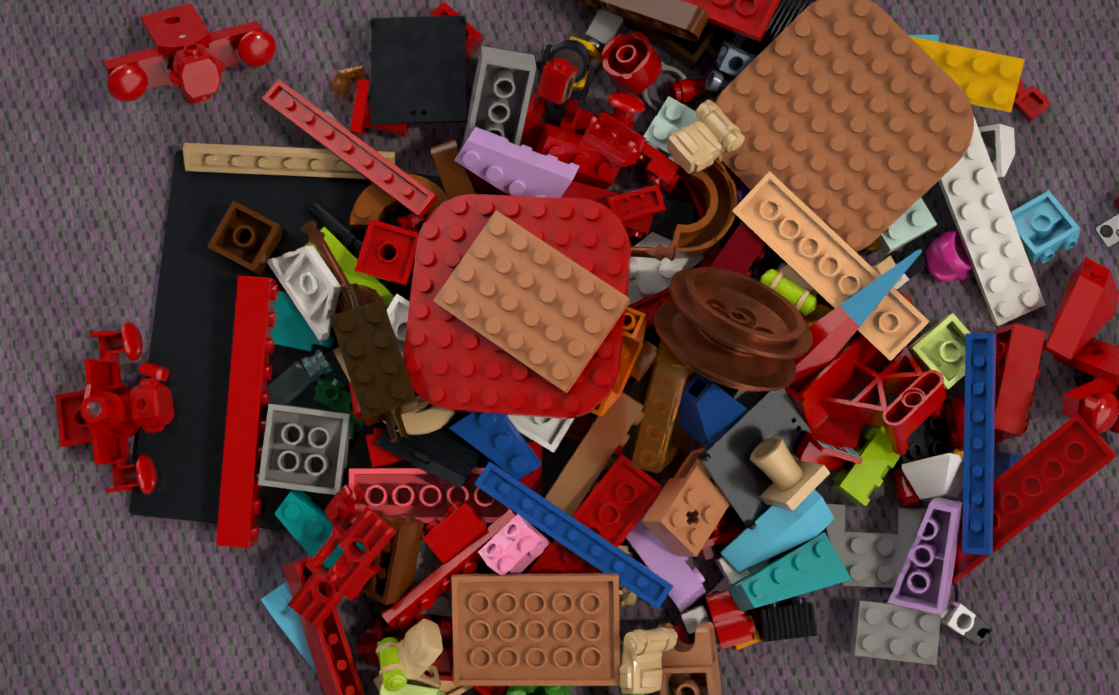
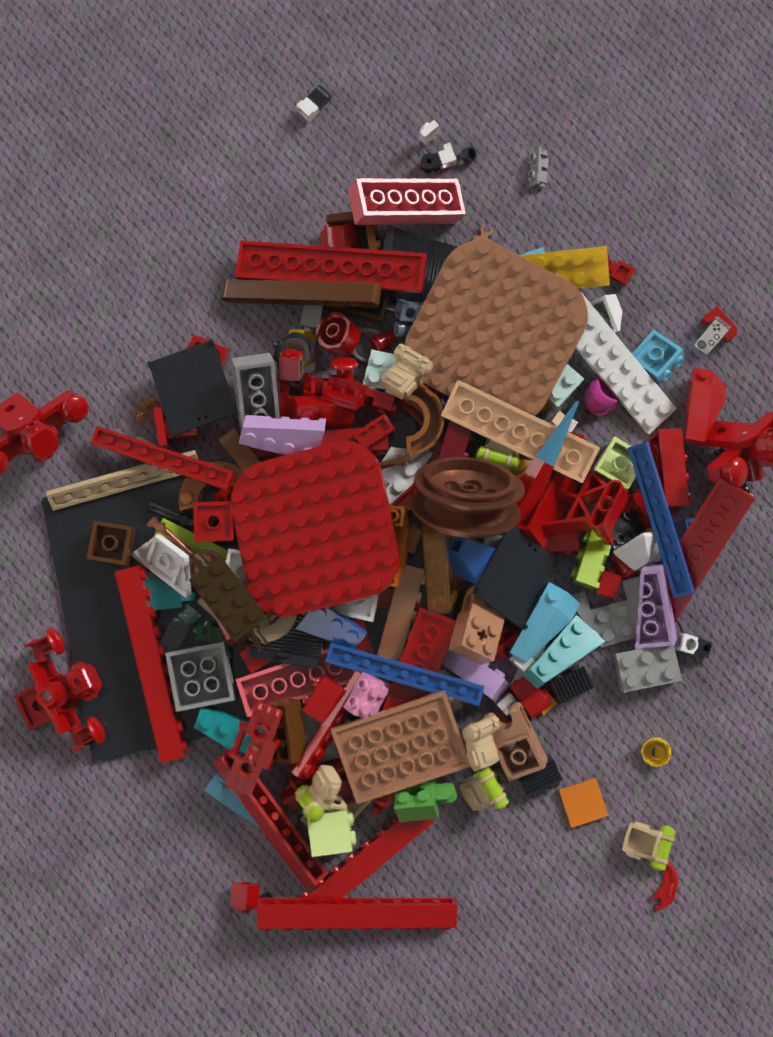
camera: 15 degrees left, 0 degrees up
(154, 371) = (77, 656): red tile -> none
(341, 508) = (239, 707): red plate -> none
(532, 301) = (324, 523): nougat plate -> none
(791, 478) = (540, 585): tan plant -> none
(826, 451) = (559, 559): red panel -> none
(880, 506) = (609, 584): none -> red brick

